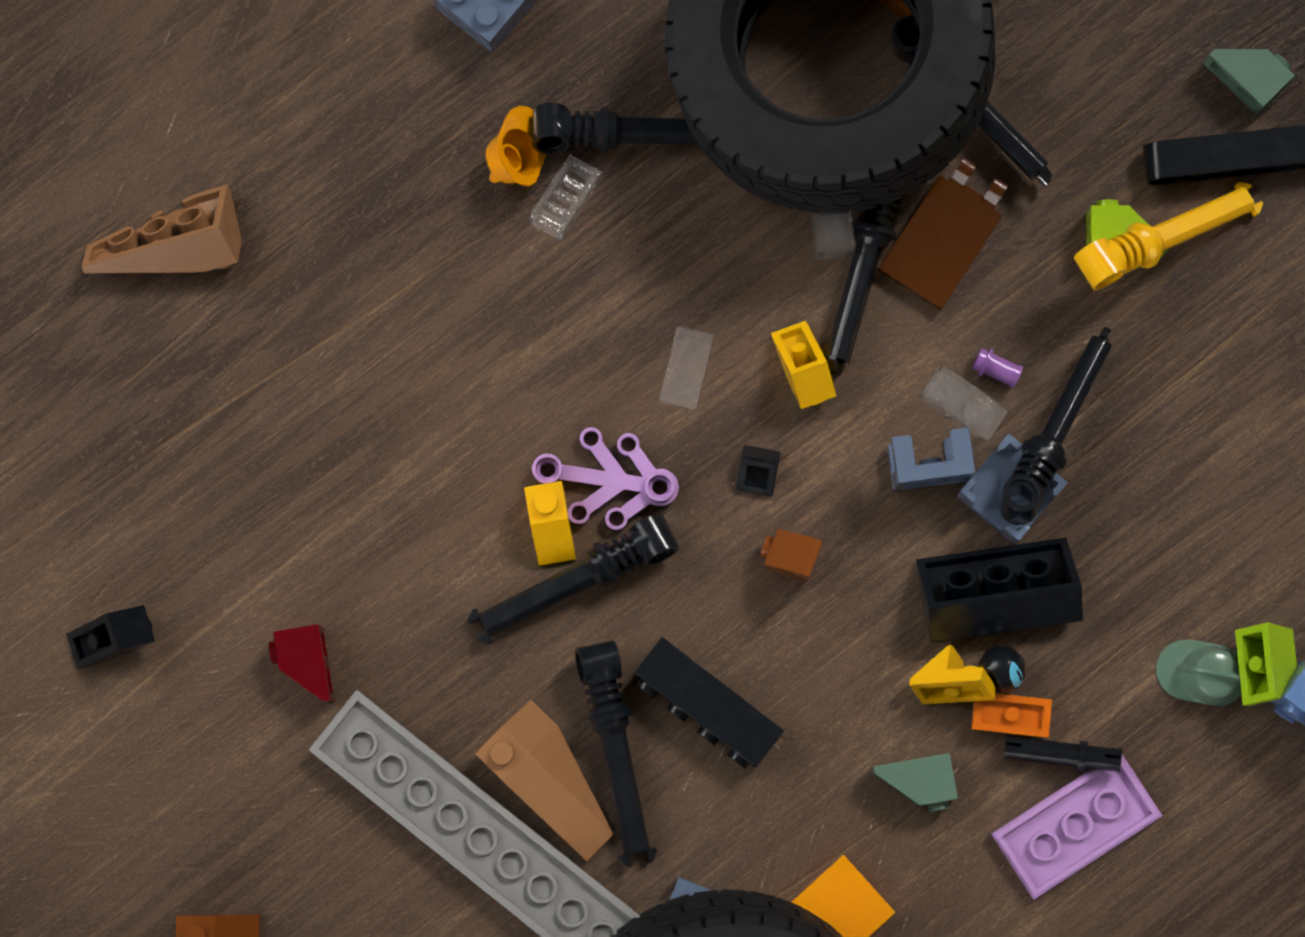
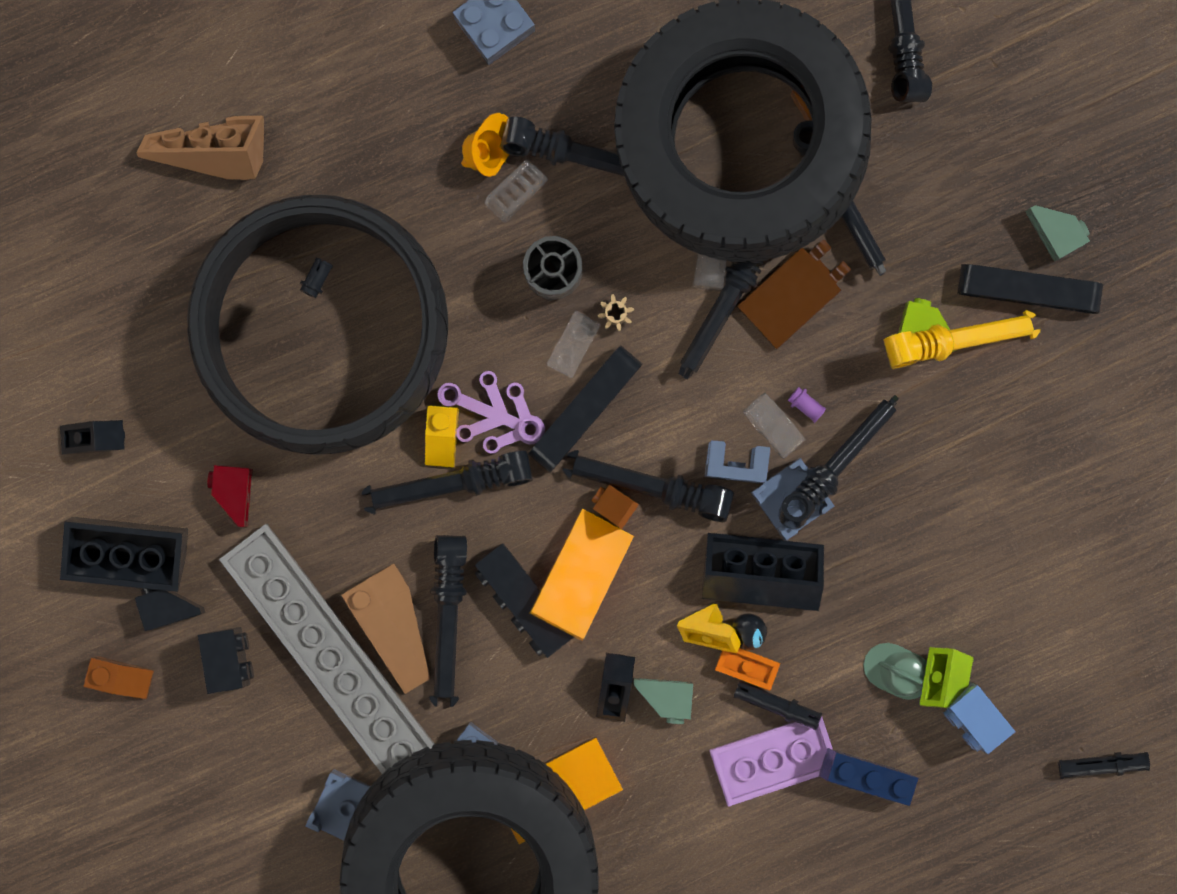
camera: 10 degrees right, 5 degrees up
(185, 773) = (123, 553): none -> black slope
(254, 829) = (163, 608): none -> black slope
(260, 318) = (237, 246): none -> black tyre
(345, 355) = (316, 278): none -> black pin
(348, 874) = (225, 660): none -> black brick
(649, 263) = (565, 260): none -> dark grey cylinder
(722, 443) = (585, 408): none -> black beam
(733, 305) = (621, 306): none -> tan gear
(758, 470) = (607, 435): black slope -> none
(772, 651) = (581, 574): none -> light orange tile
(804, 364) = (662, 365): yellow slope -> none
(852, 783) = (615, 687): none -> black slope
(912, 518) = (712, 502): none -> black piece
(1202, 814) = (868, 776): none -> dark blue brick

